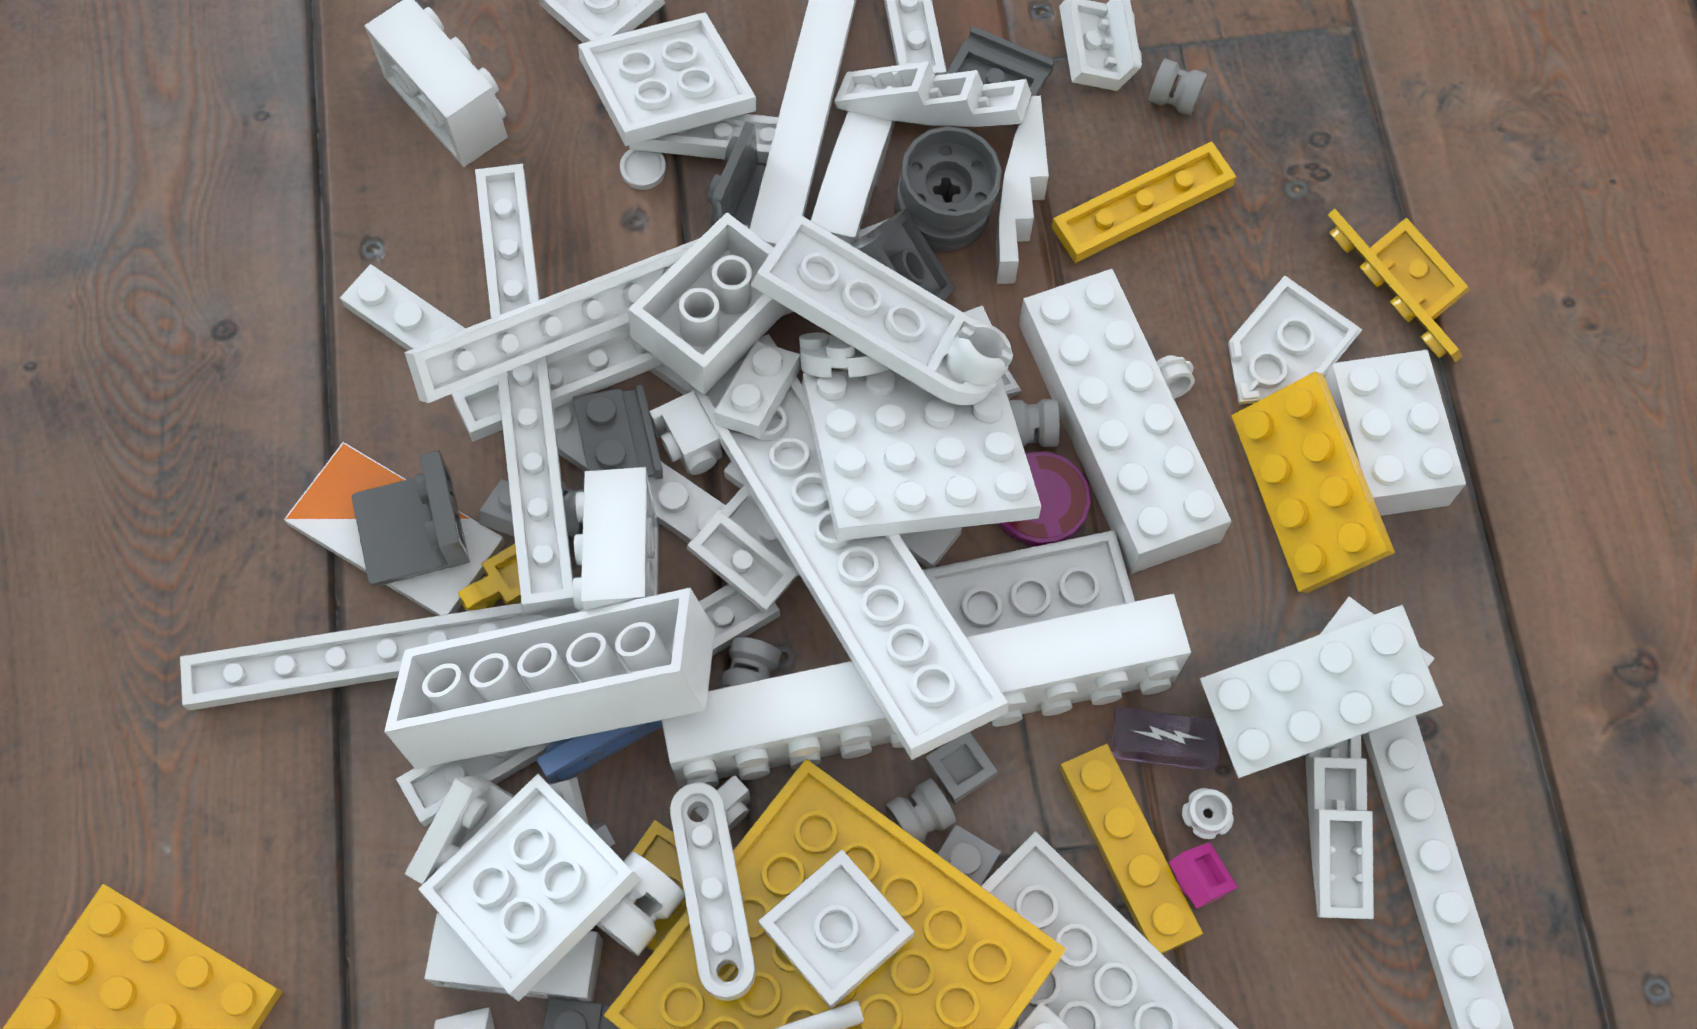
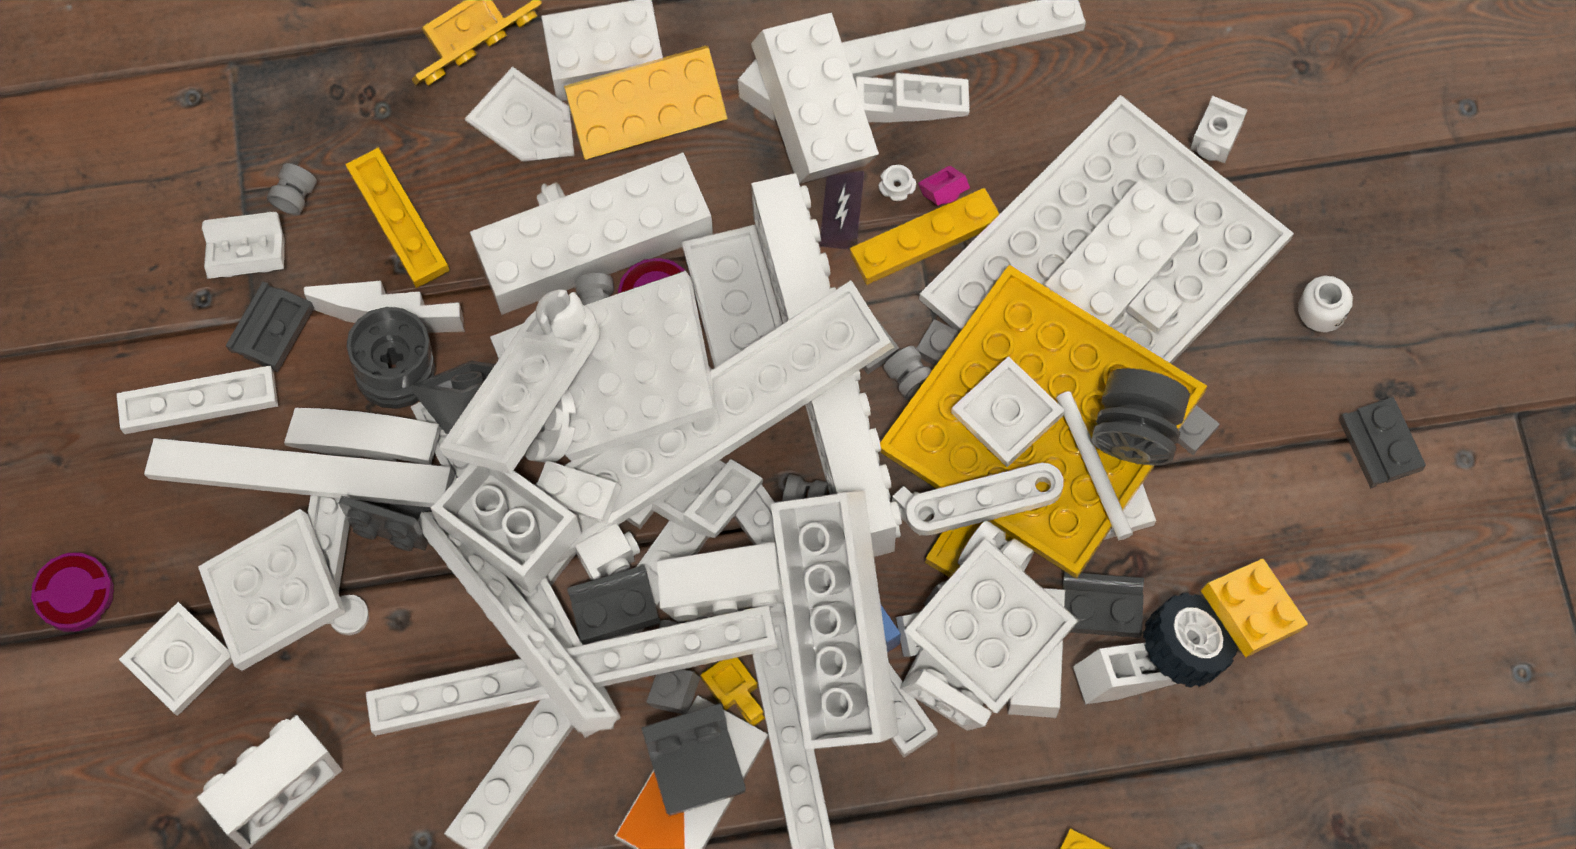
camera: 90 degrees left, 0 degrees up
(918, 96) = (301, 371): white slope -> none

